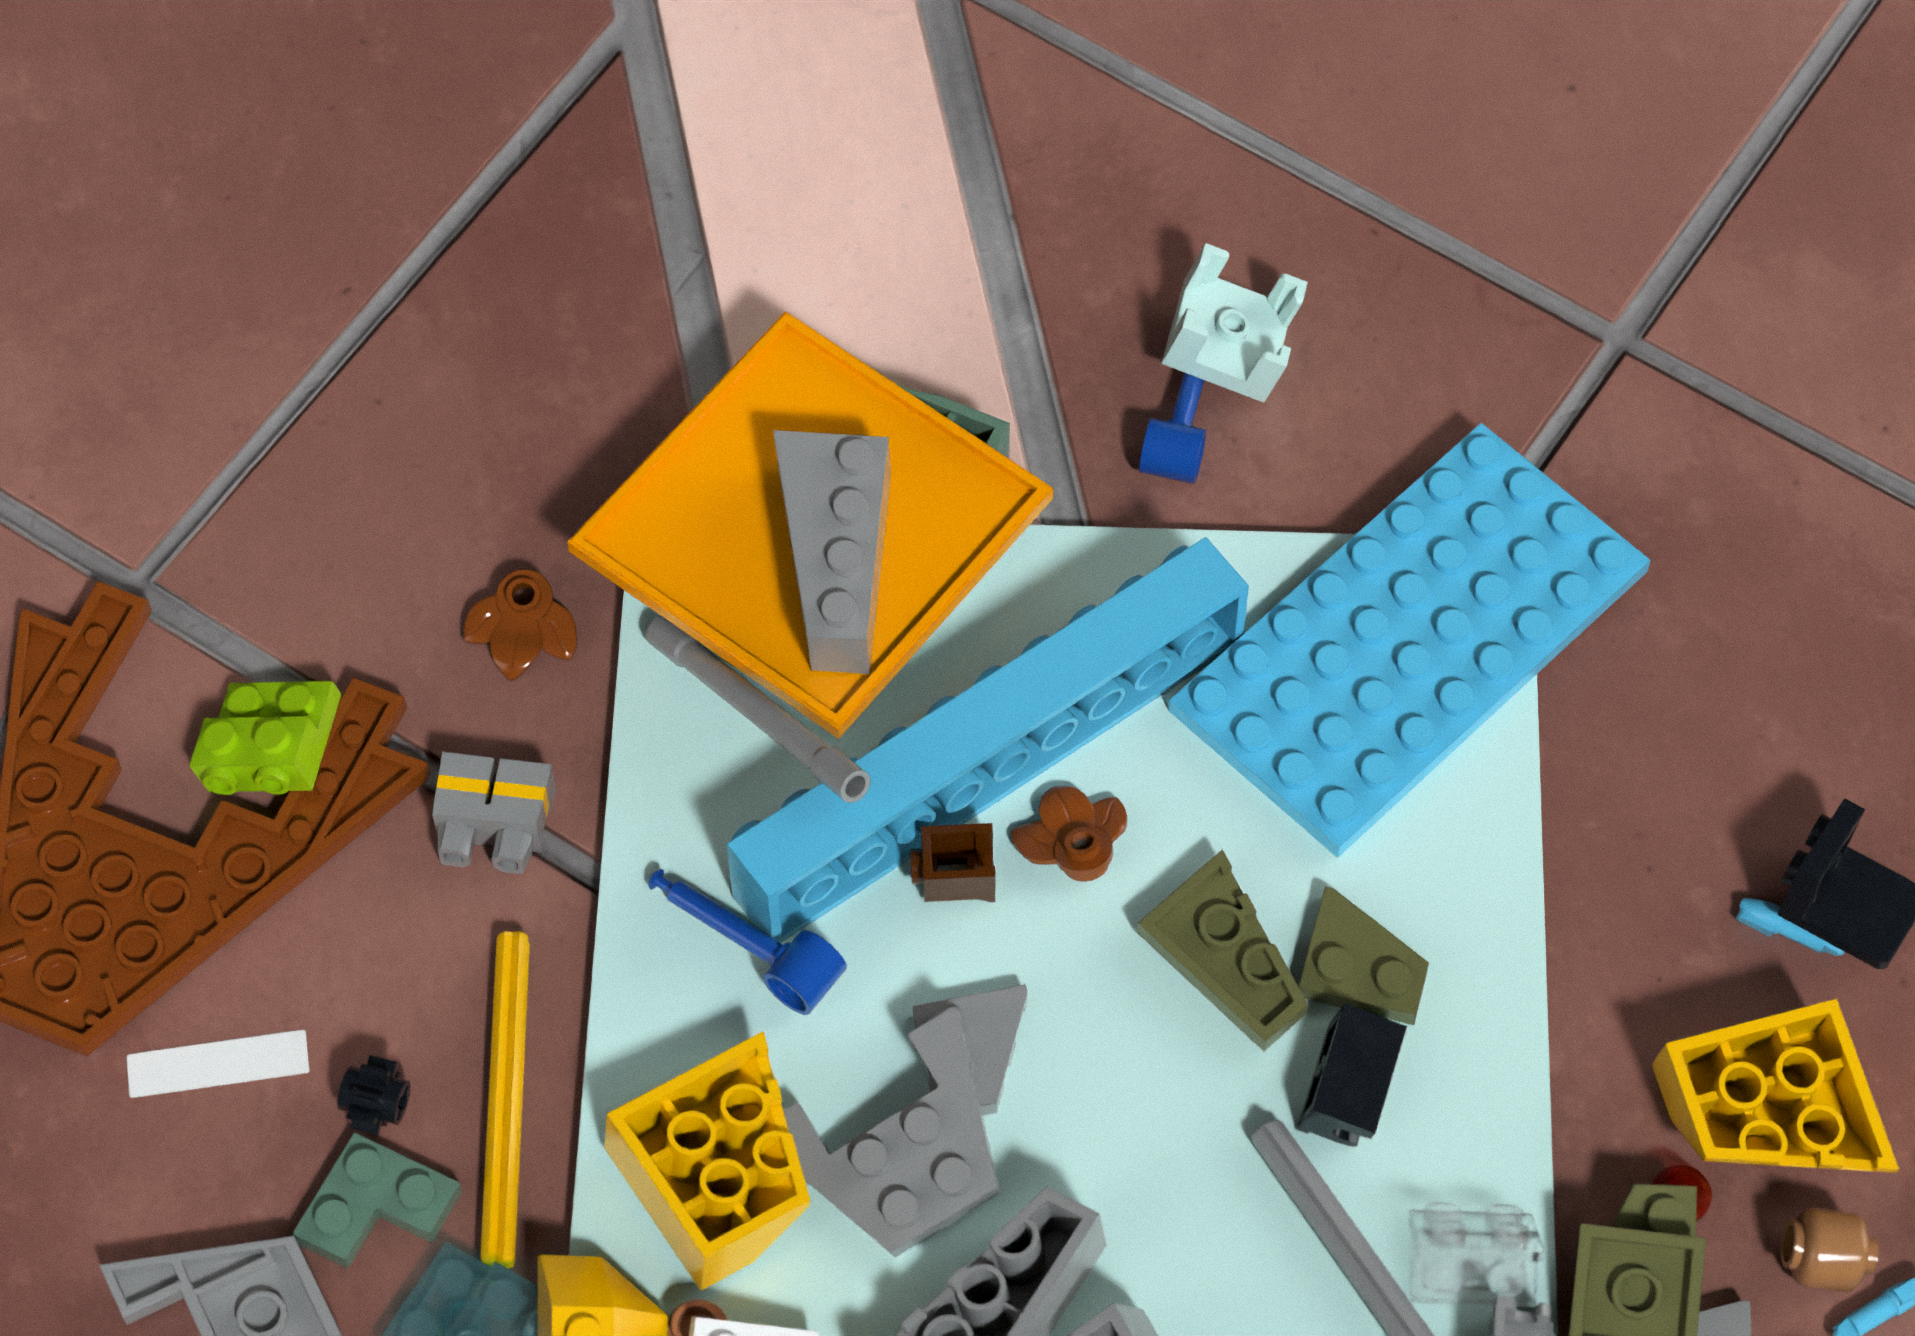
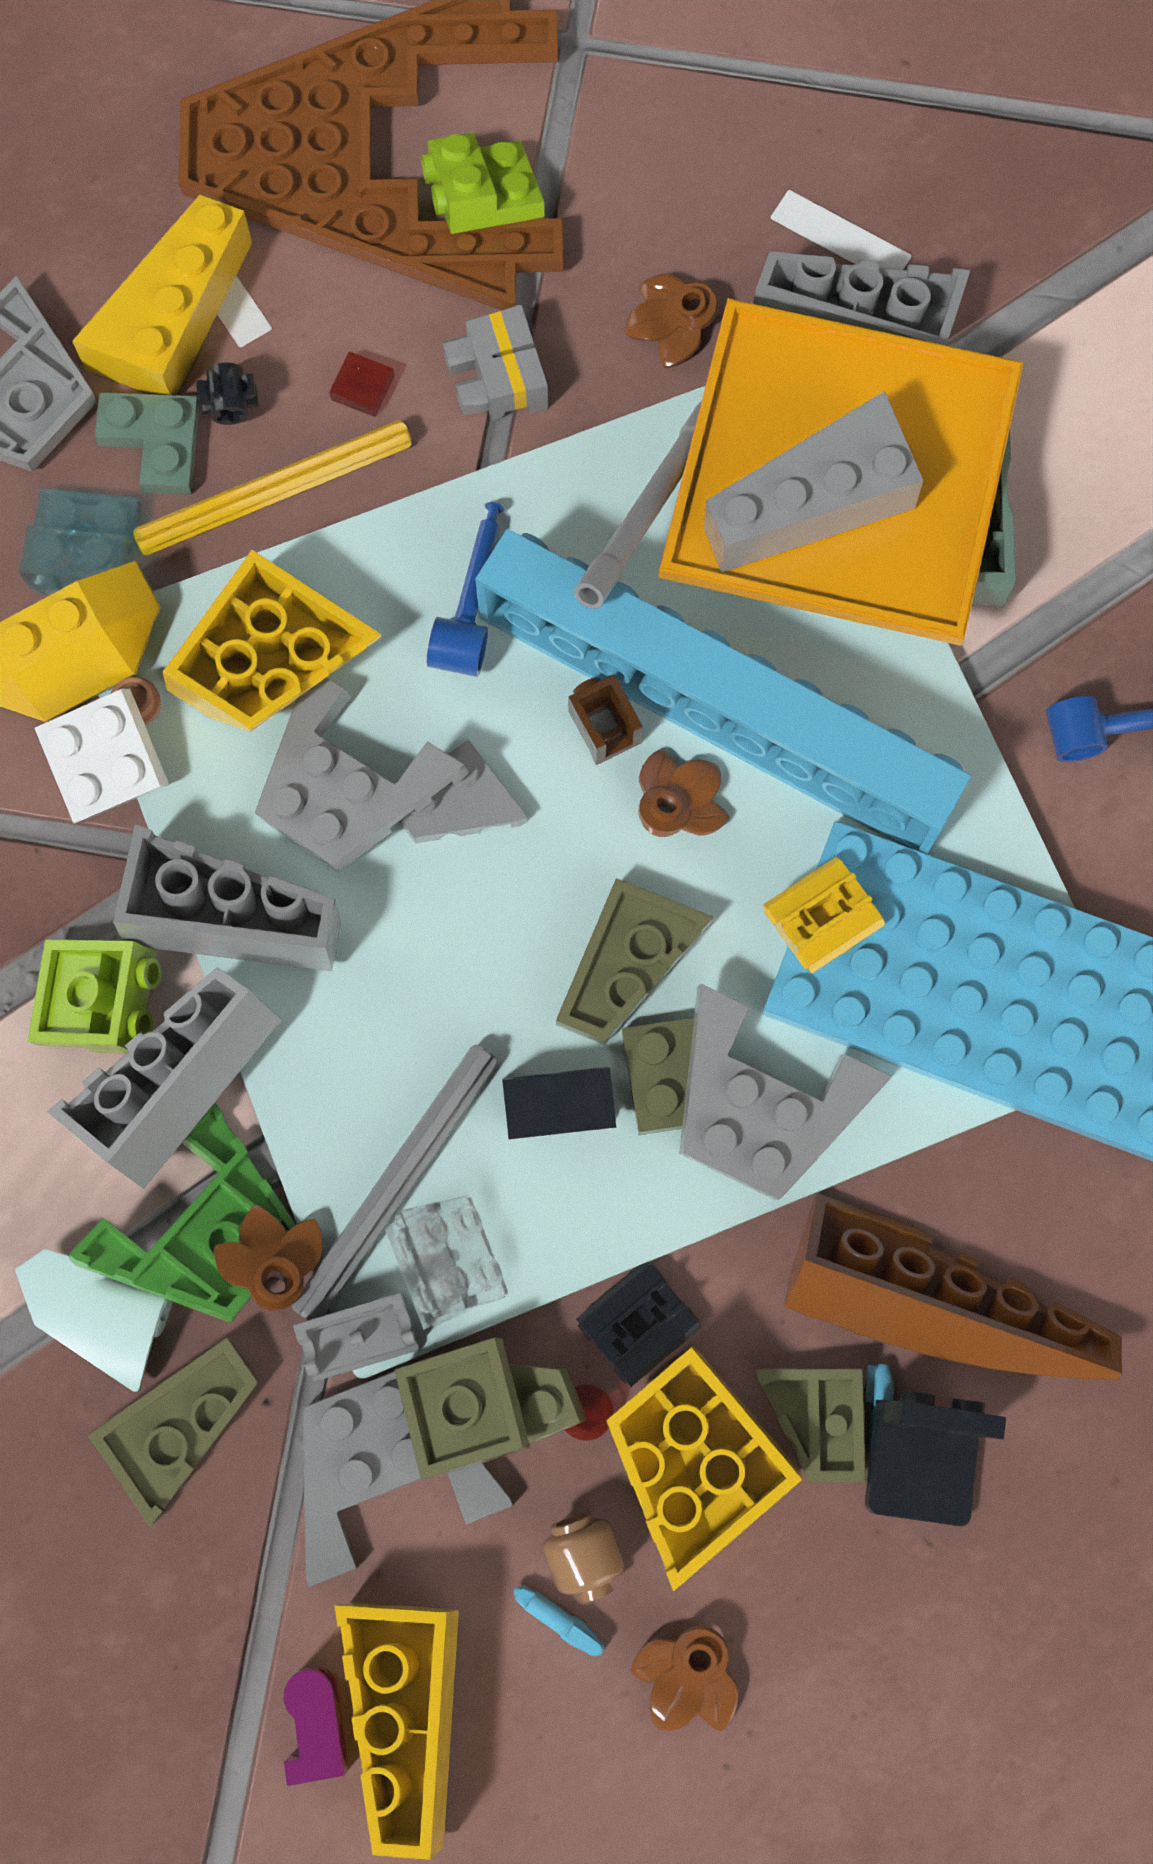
camera: 65 degrees right, 15 degrees up
(237, 1120) = (169, 302): none -> yellow wedge
(428, 960) = (362, 384): none -> clear red tile
(512, 434) = (836, 233): none -> white sticker
(615, 433) = (863, 294): none -> light grey wedge
(1271, 743) = (823, 915): none -> yellow piece
(1449, 907) = (752, 1122): none -> light grey wing
(1608, 1108) = (638, 1323): none -> black piece
(1669, 858) = (908, 1294): none -> dark orange wedge
(1773, 974) = (822, 1419): none -> olive wing

